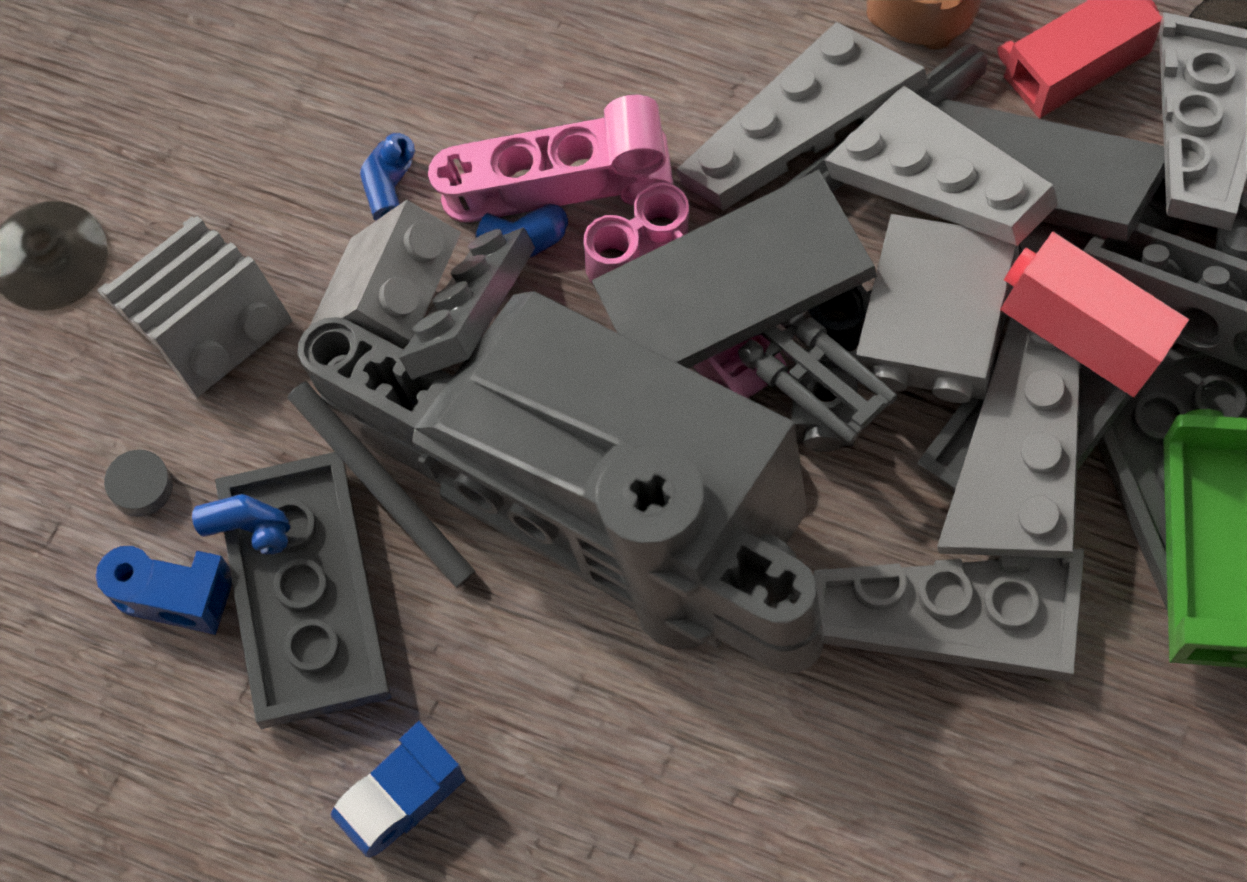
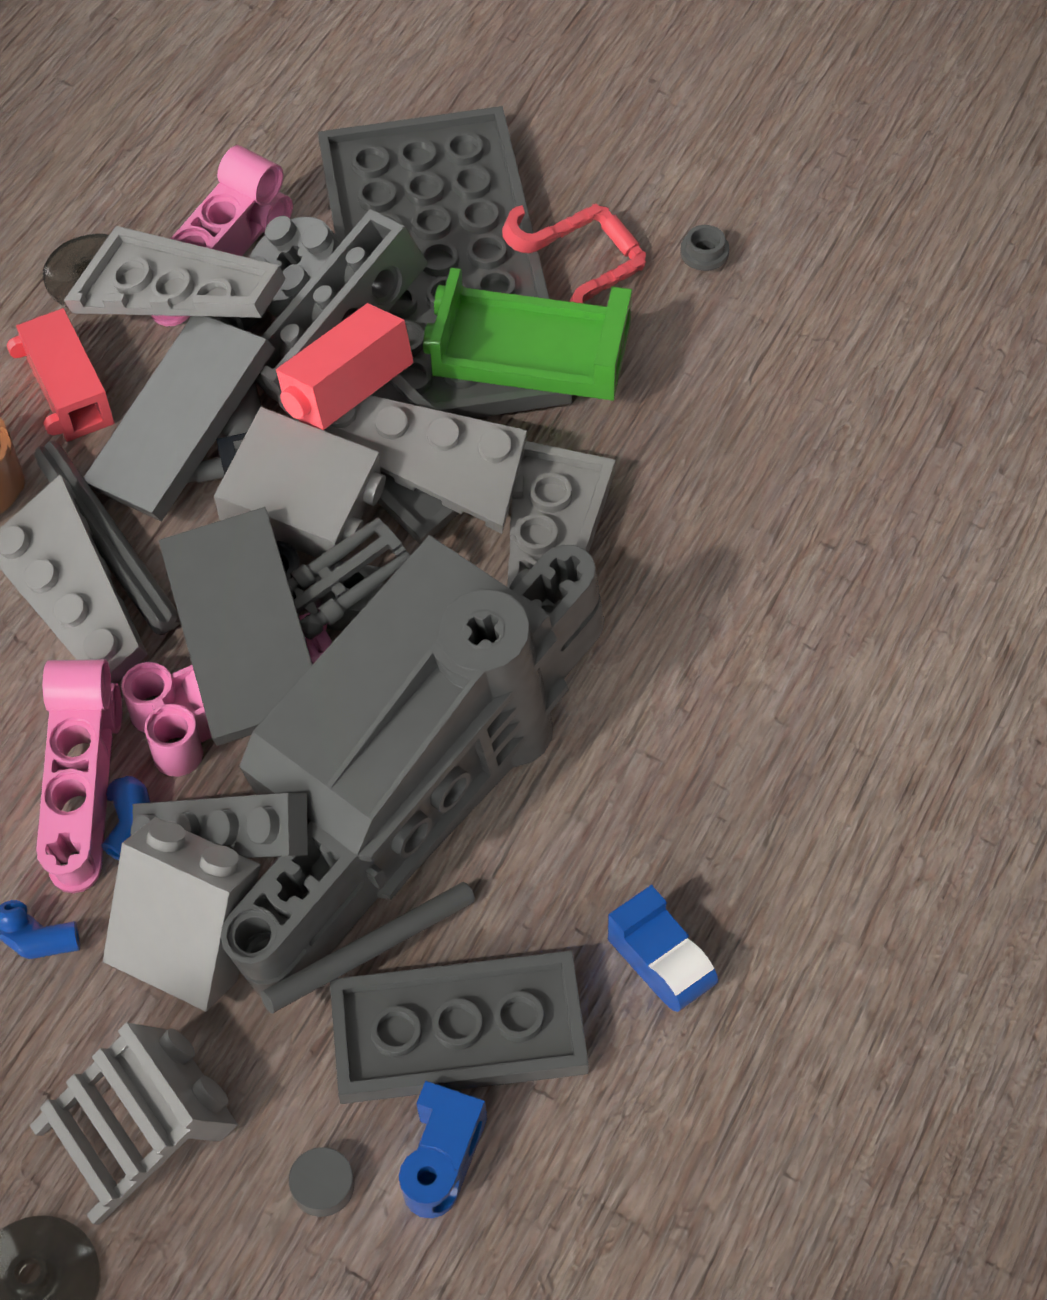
camera: 85 degrees left, 10 degrees down
(244, 512) = (387, 1054): blue arm -> none
(942, 168) = (167, 468): light grey wing -> none

